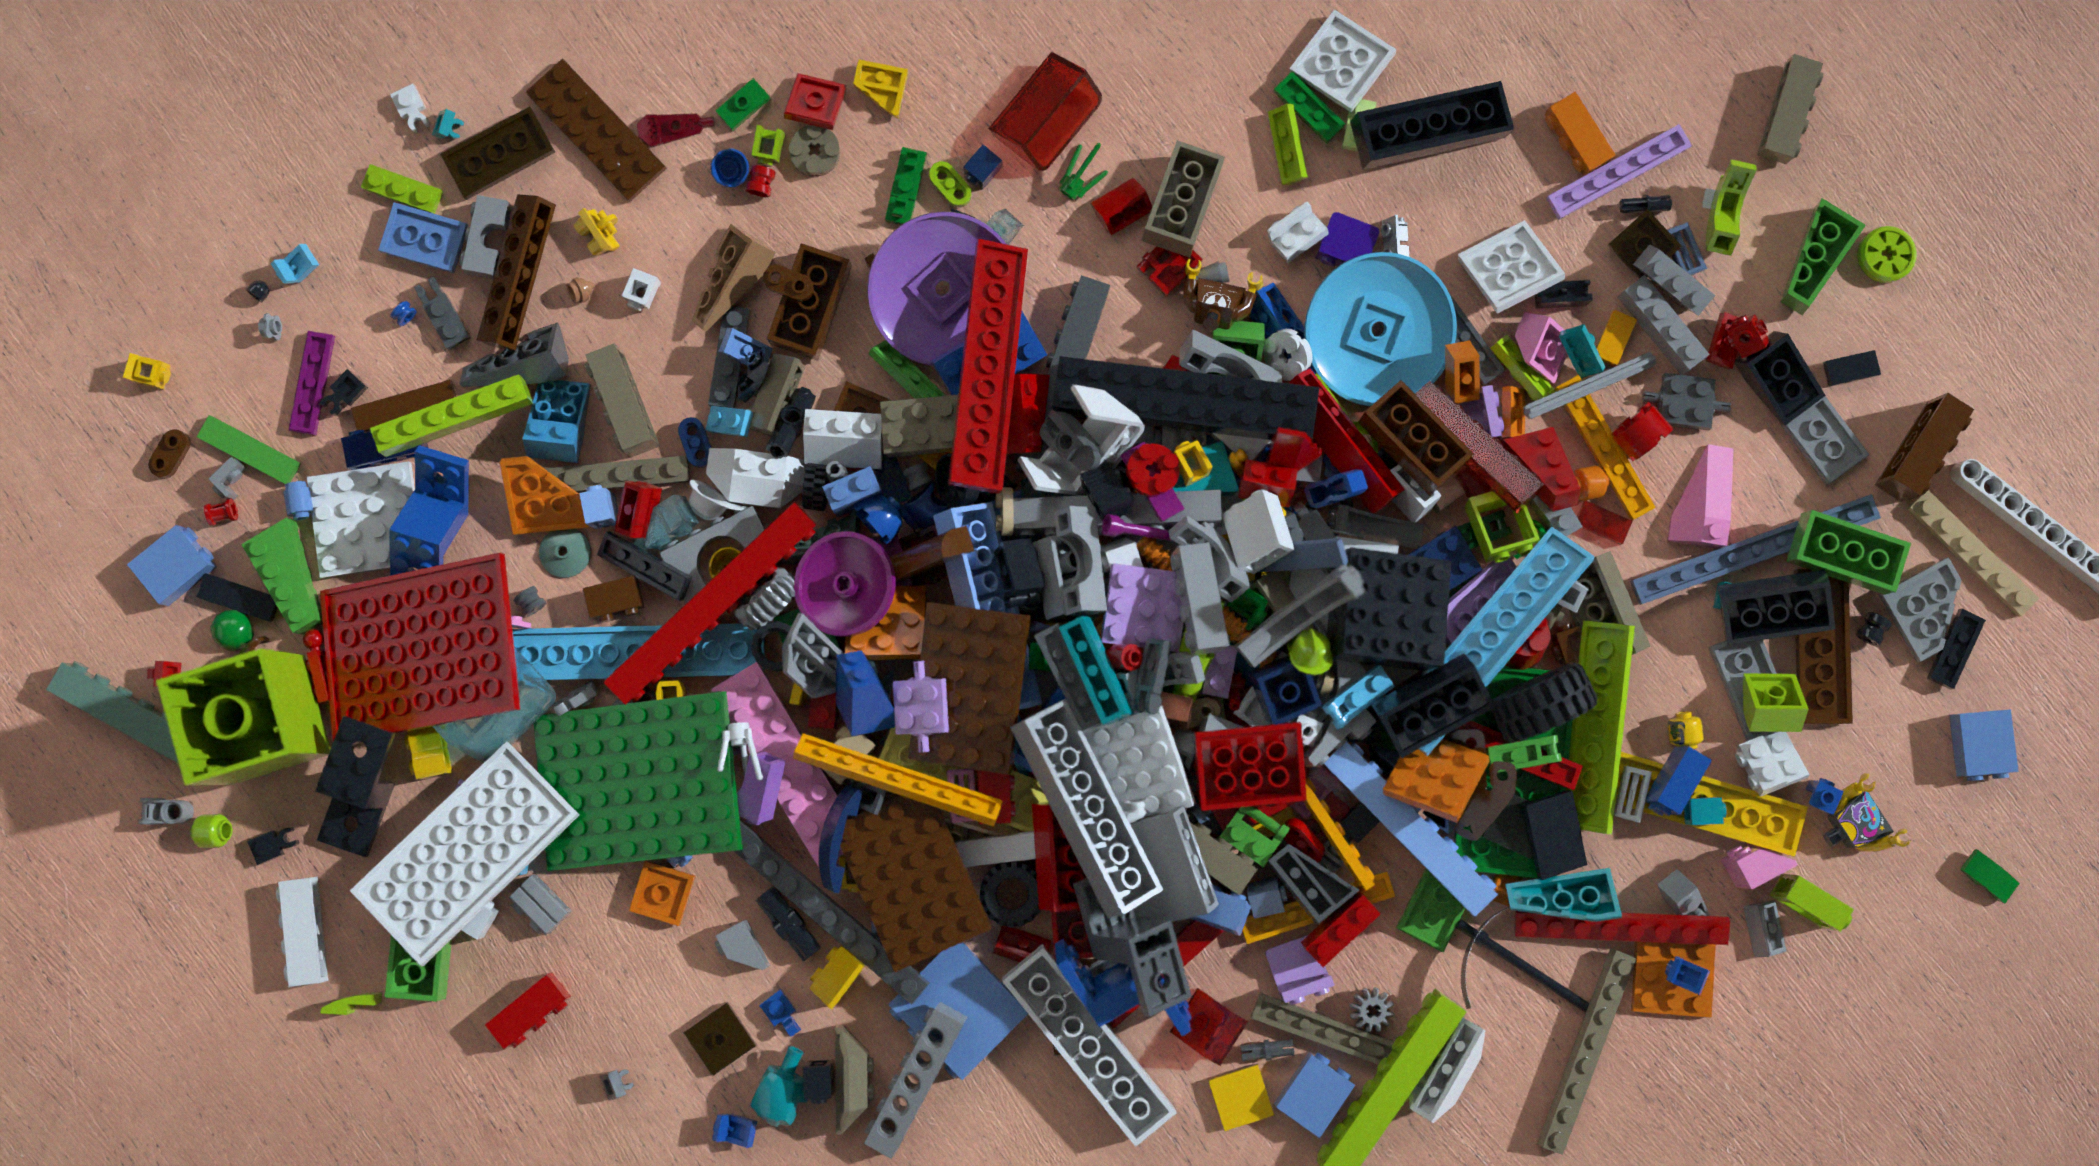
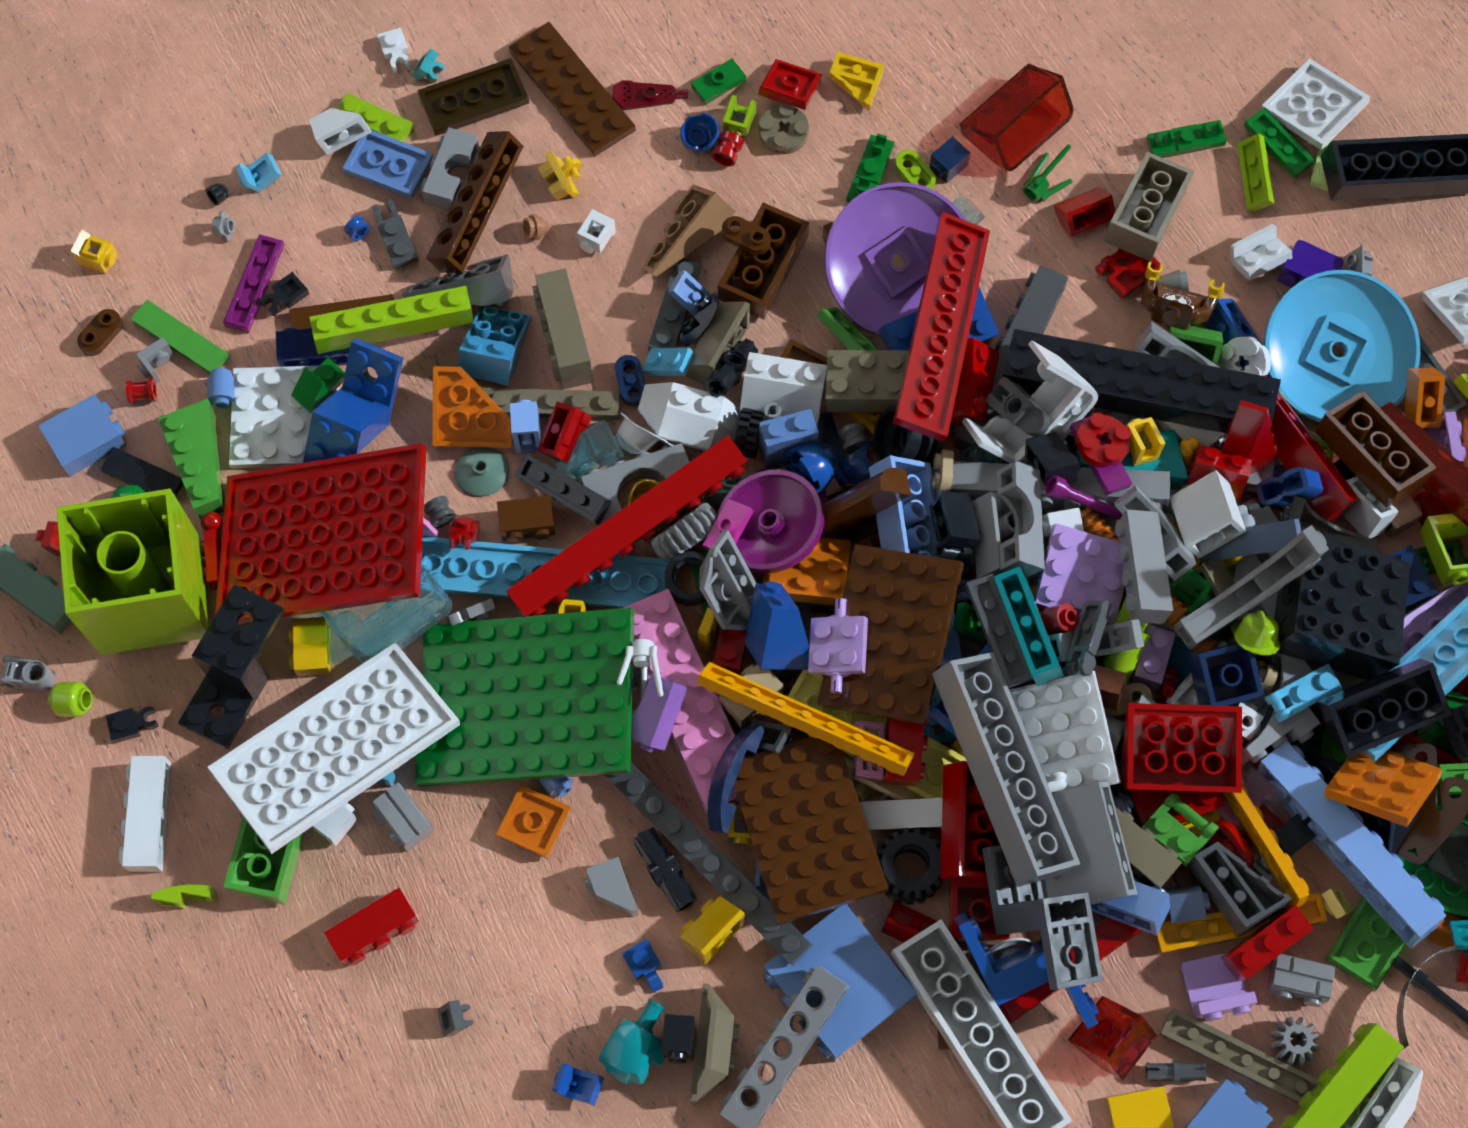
camera: 10 degrees right, 15 degrees down
(365, 210) = (337, 129): none -> white slope
(391, 489) = (317, 385): none -> green slope
(555, 619) = (463, 532): none -> red plate
(720, 1038) = (574, 985): dark brown plate -> none
(805, 594) = (731, 518): none -> dark pink plate
(1217, 113) = (1187, 139): none -> green plate
(1375, 953) = (1301, 979): none -> light grey brick
(1403, 878) = (1336, 903): none -> light yellow plate

